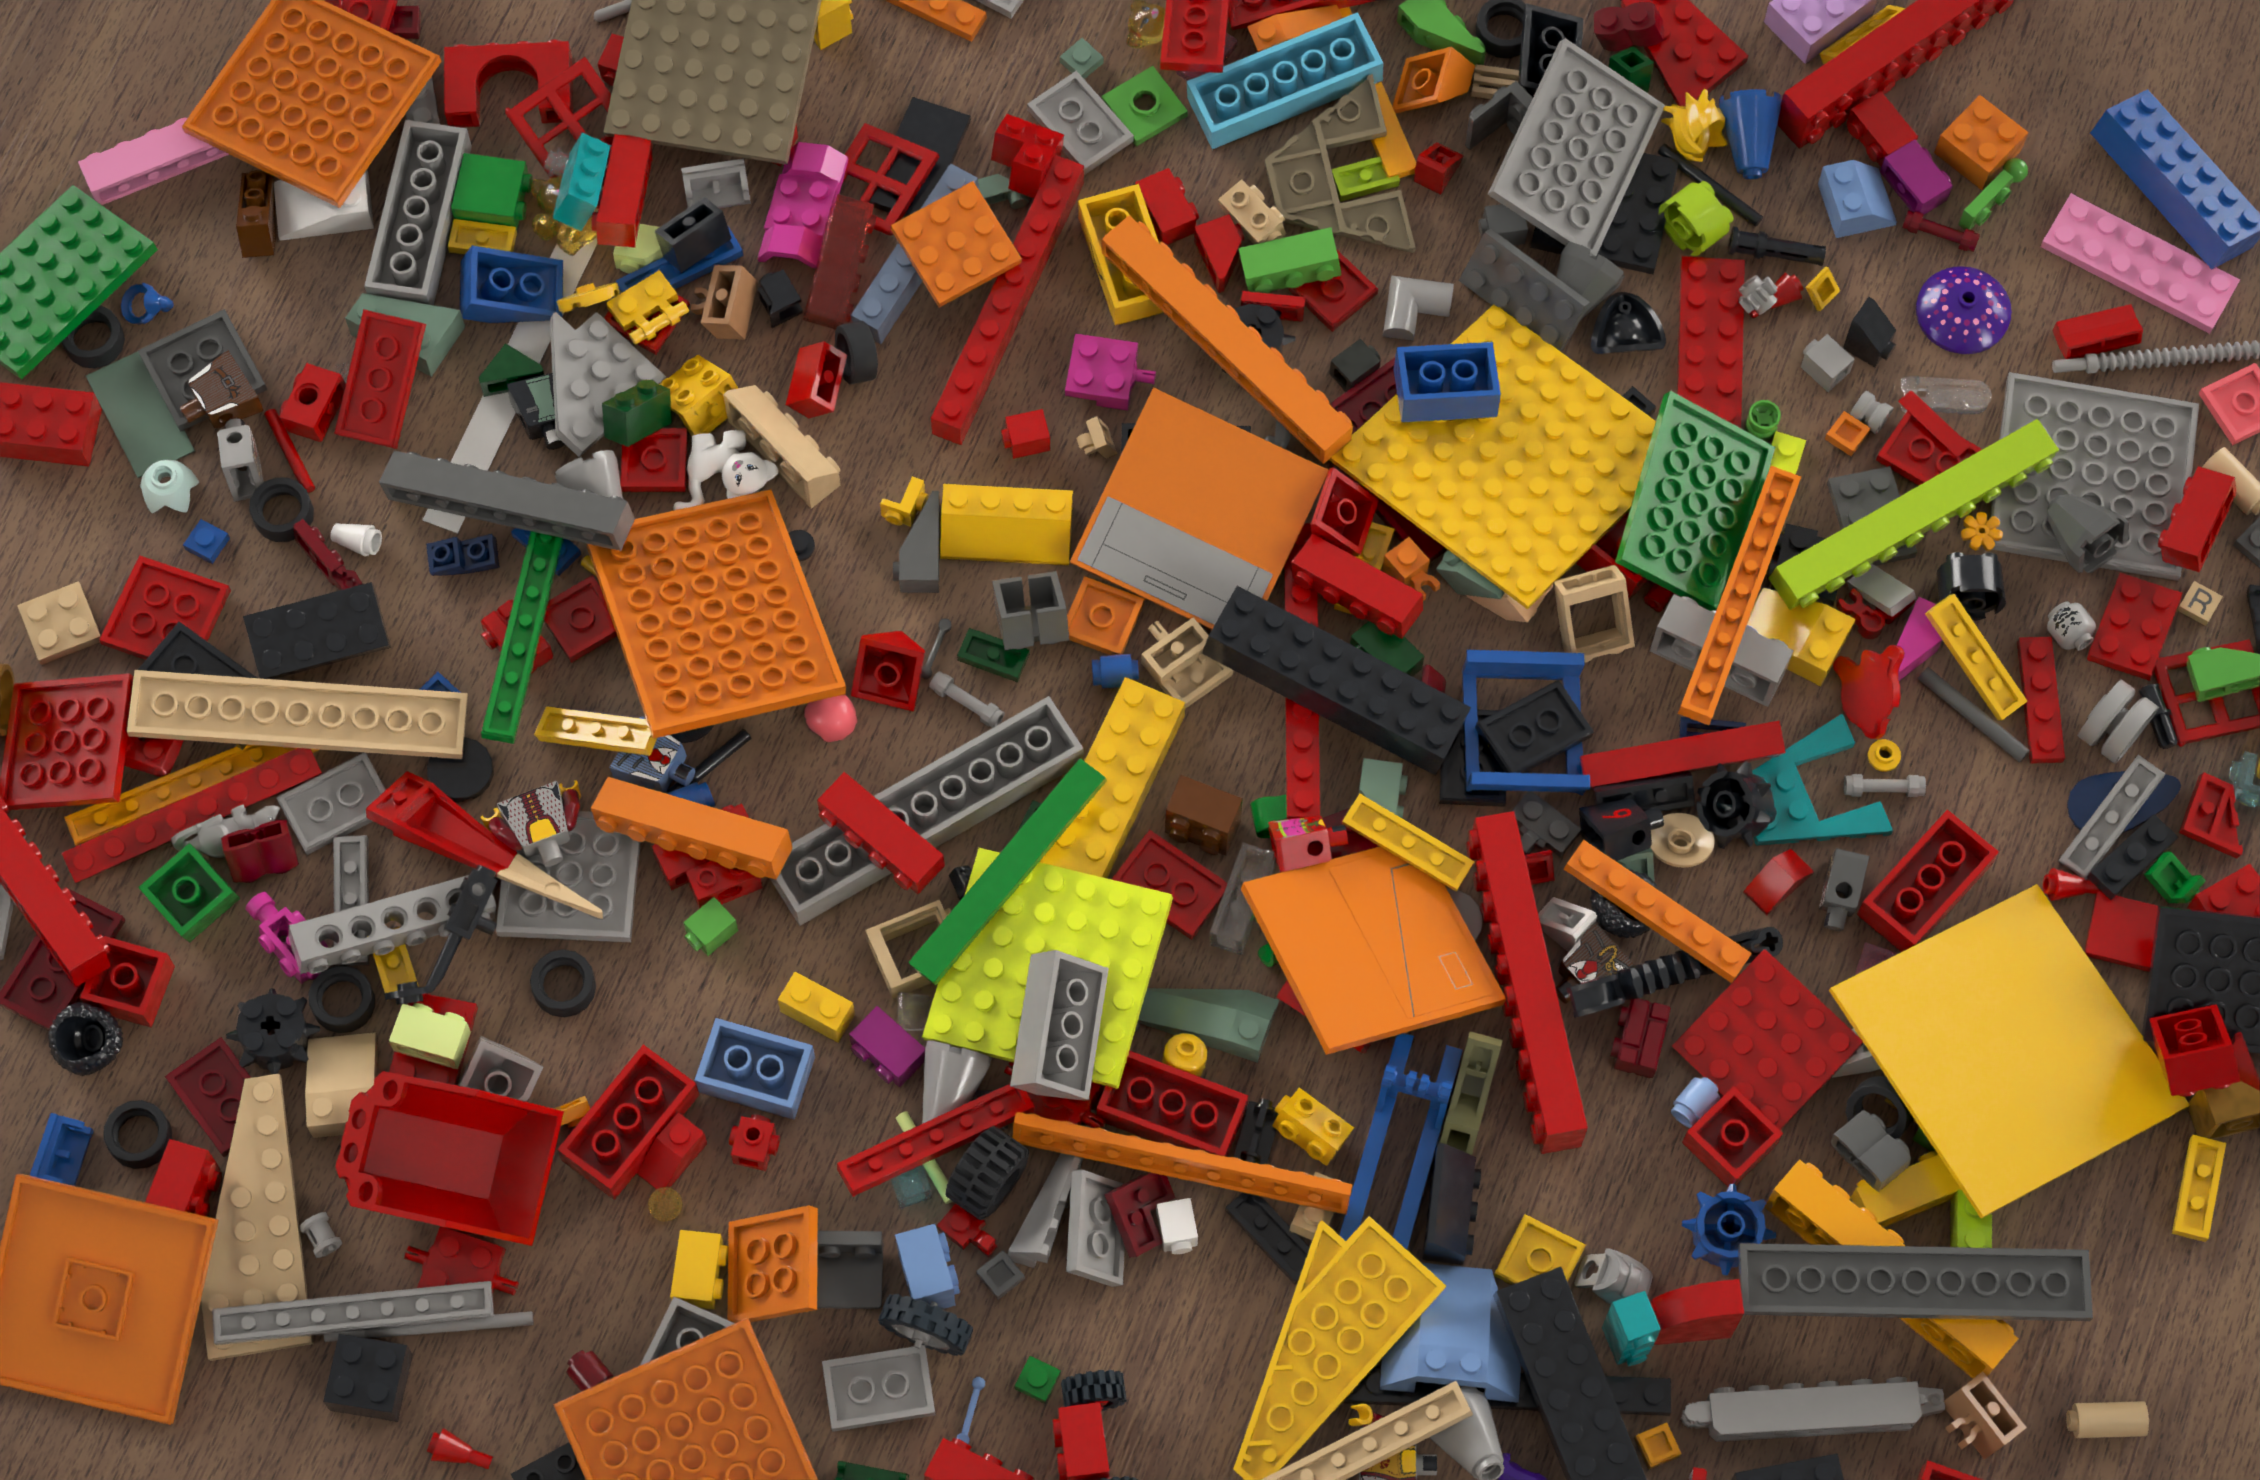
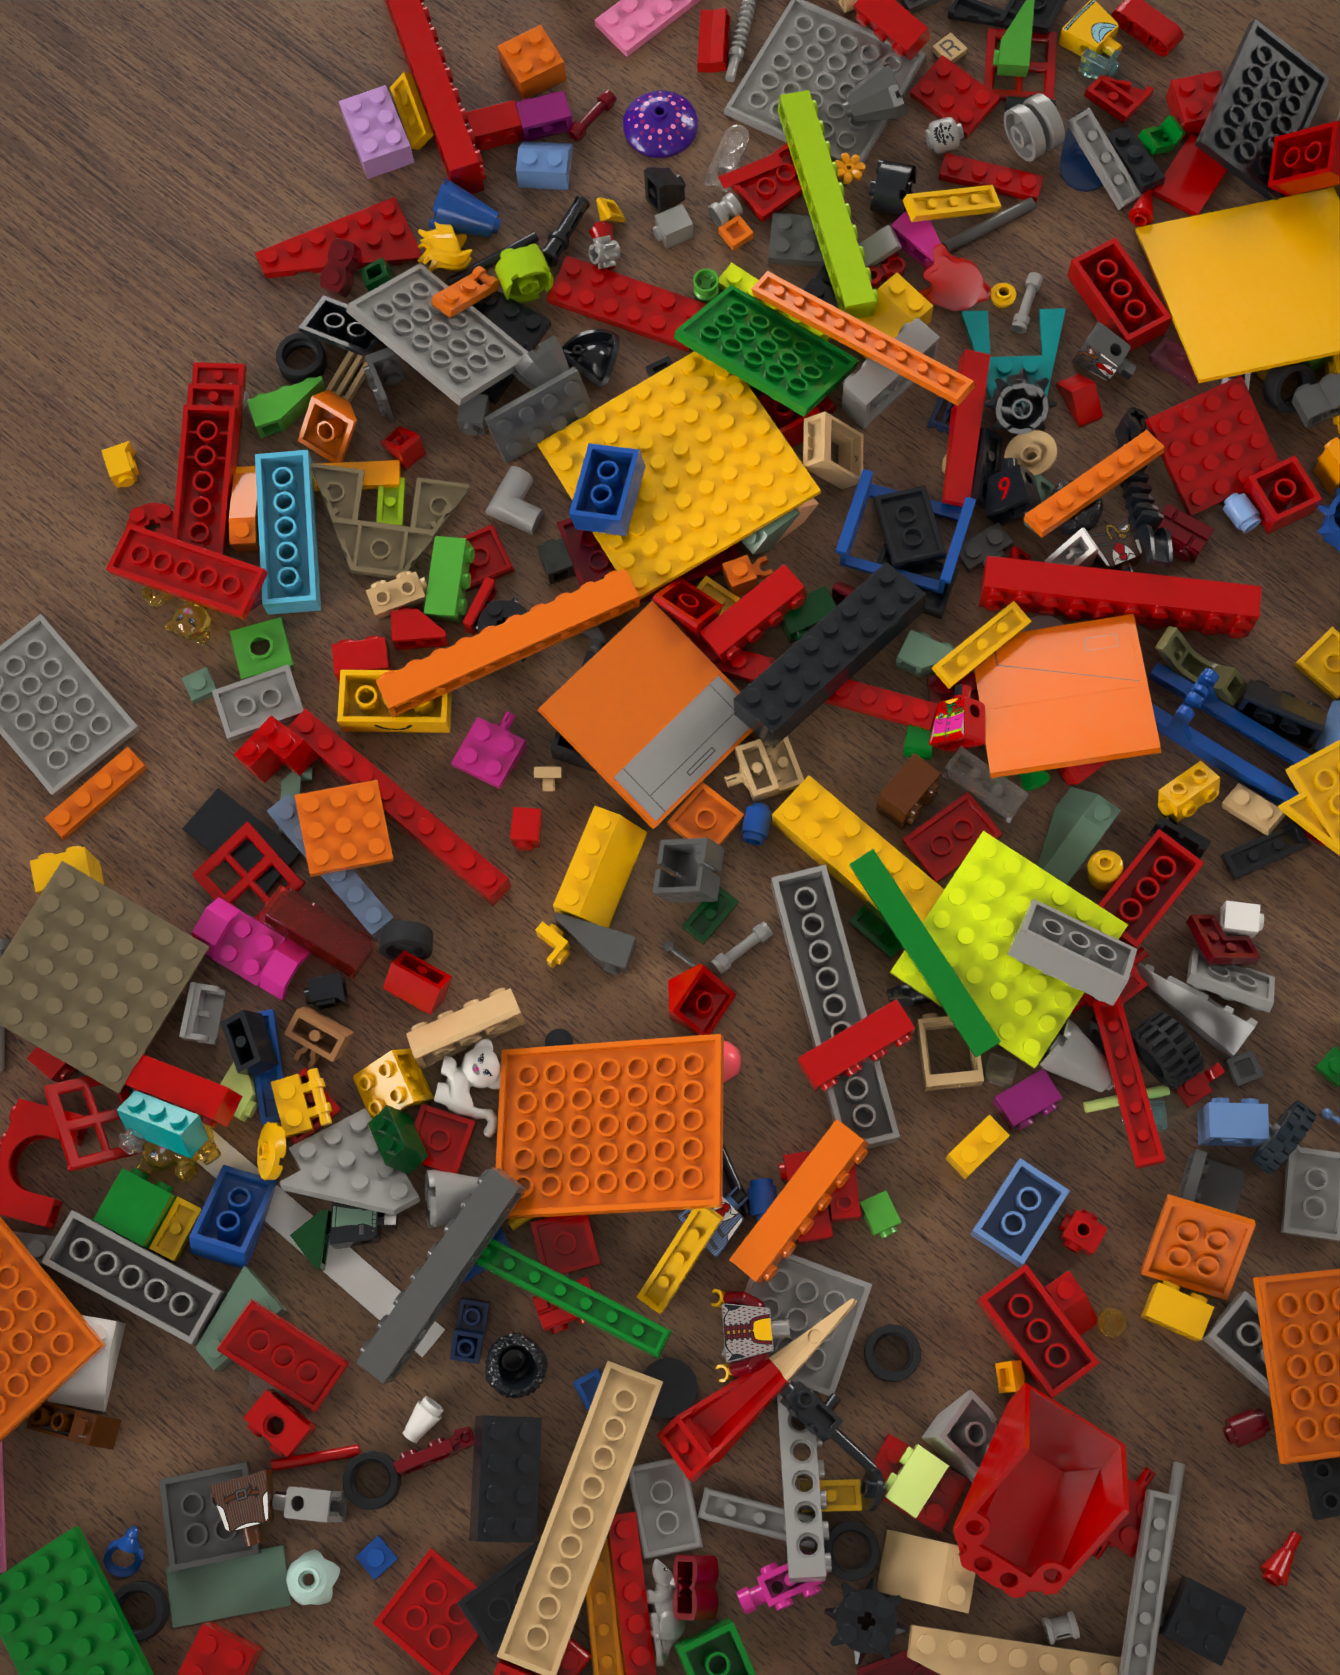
camera: 65 degrees left, 5 degrees up
(435, 605) = (515, 1366): none -> black hair
(1182, 1163) = (1193, 906): orange plate -> none
(1644, 162) = (465, 292): none -> orange plate
(1996, 192) = (577, 70): bright green plate -> none

